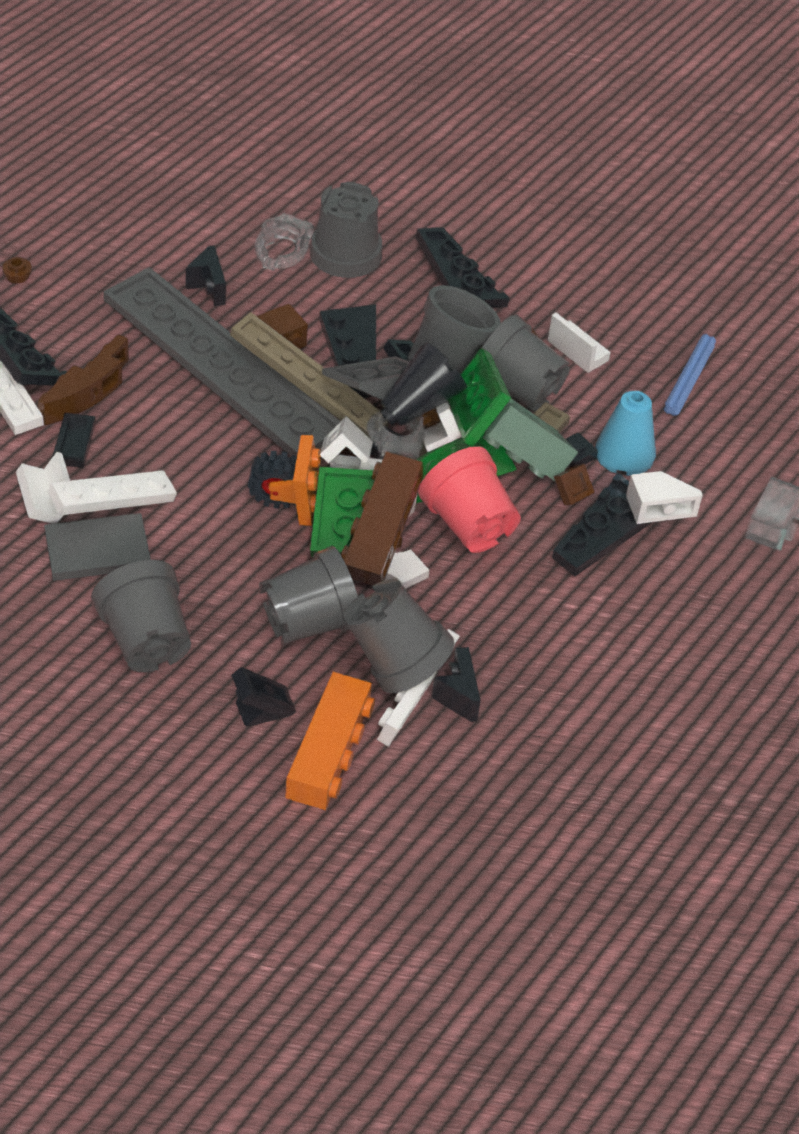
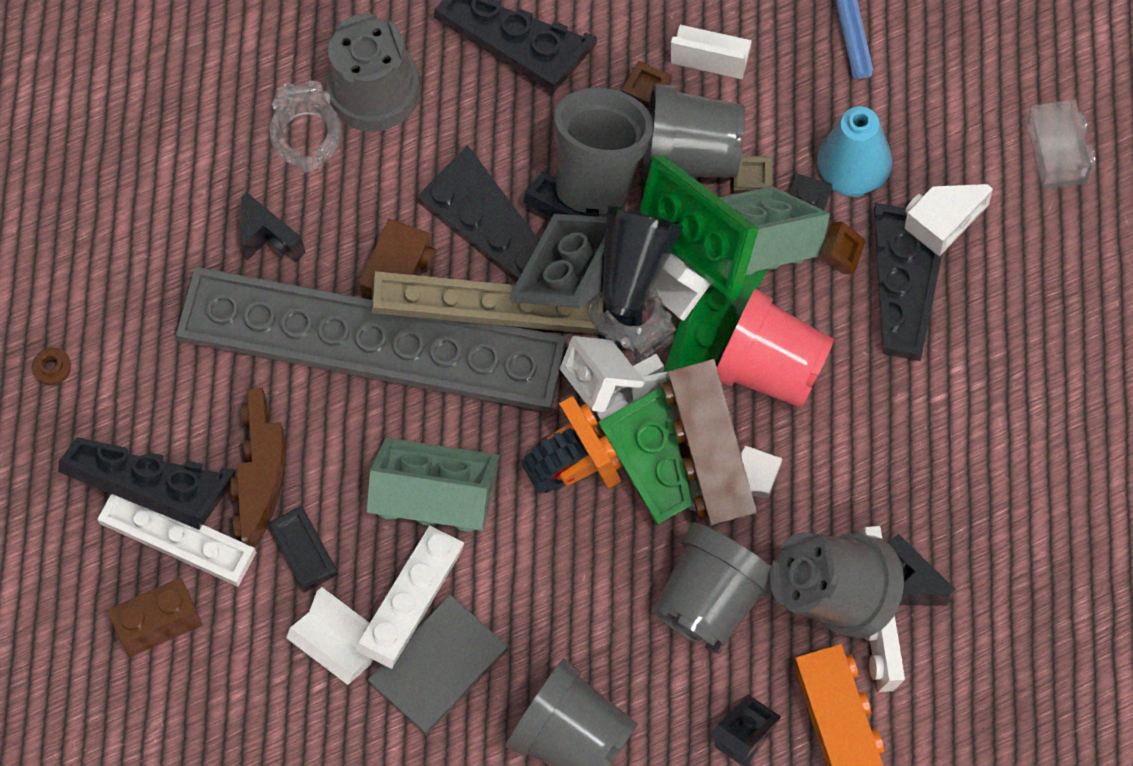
camera: 25 degrees left, 20 degrees up
(184, 451) = (432, 484): none -> sand green slope

